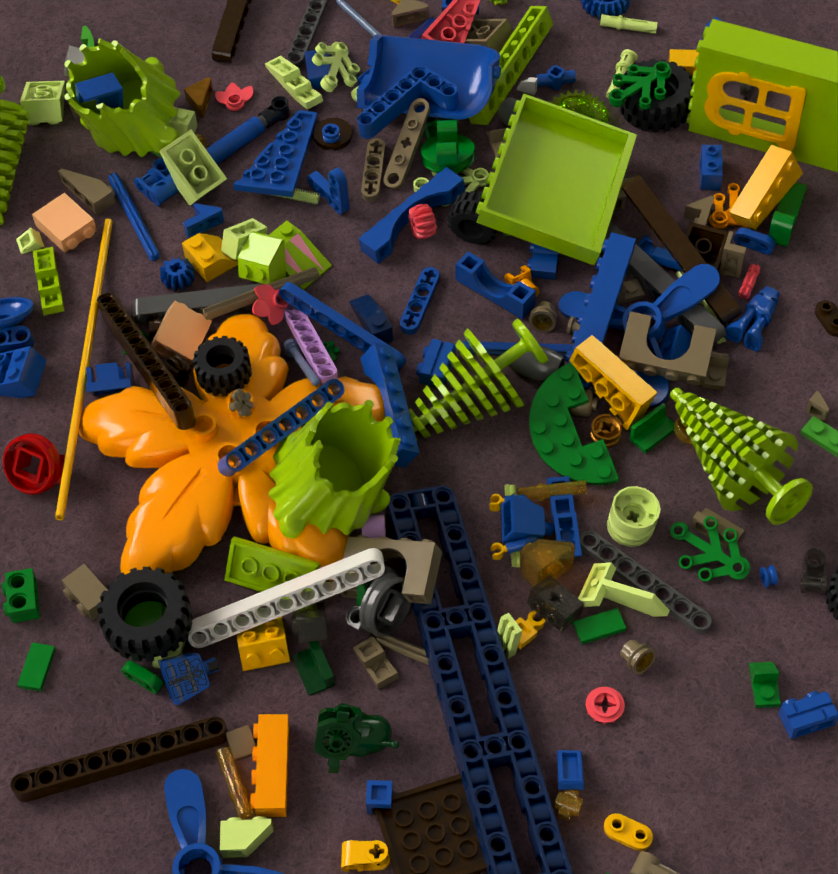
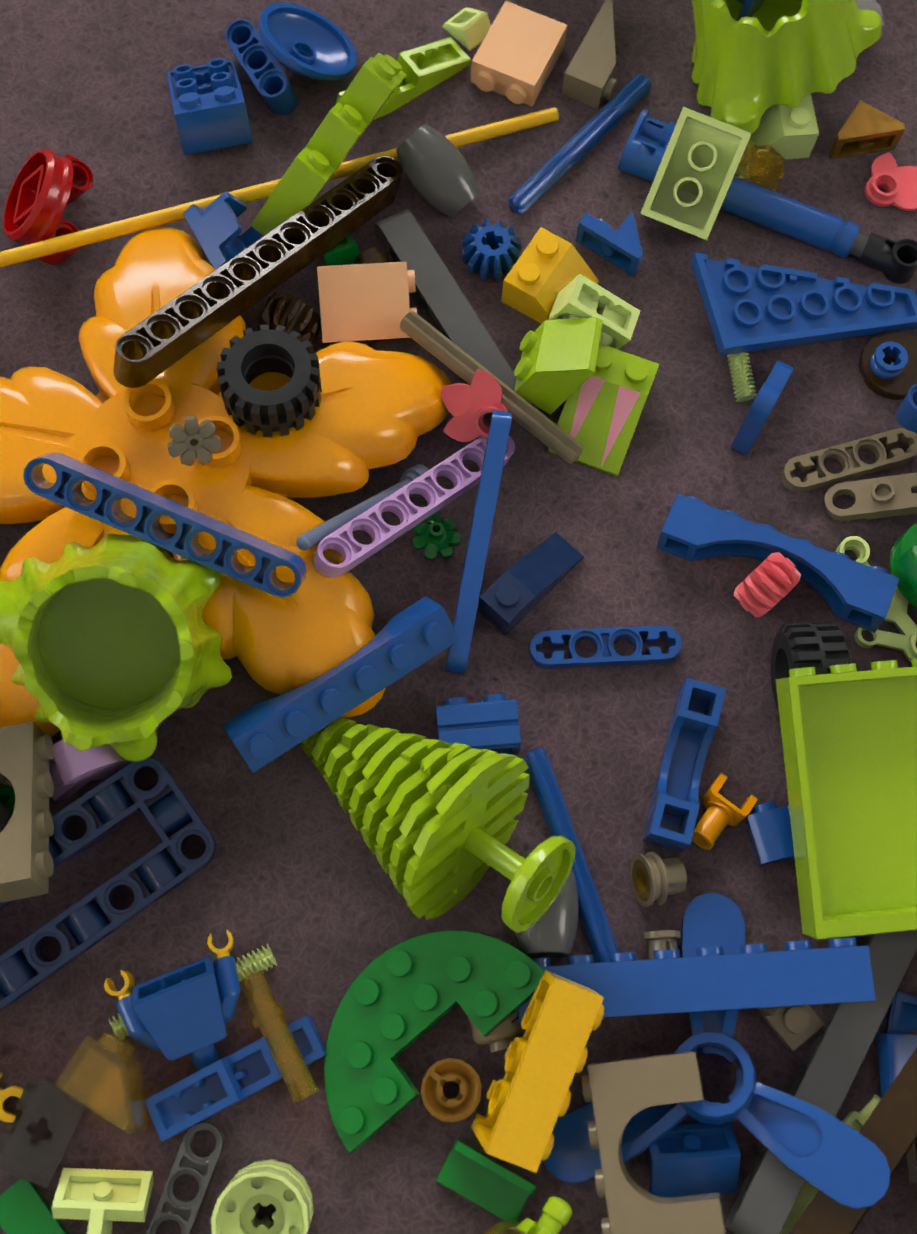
camera: 60 degrees right, 15 degrees up
(84, 304) = (331, 141): none -> lime arch
(120, 277) = (438, 170): none -> dark grey piece

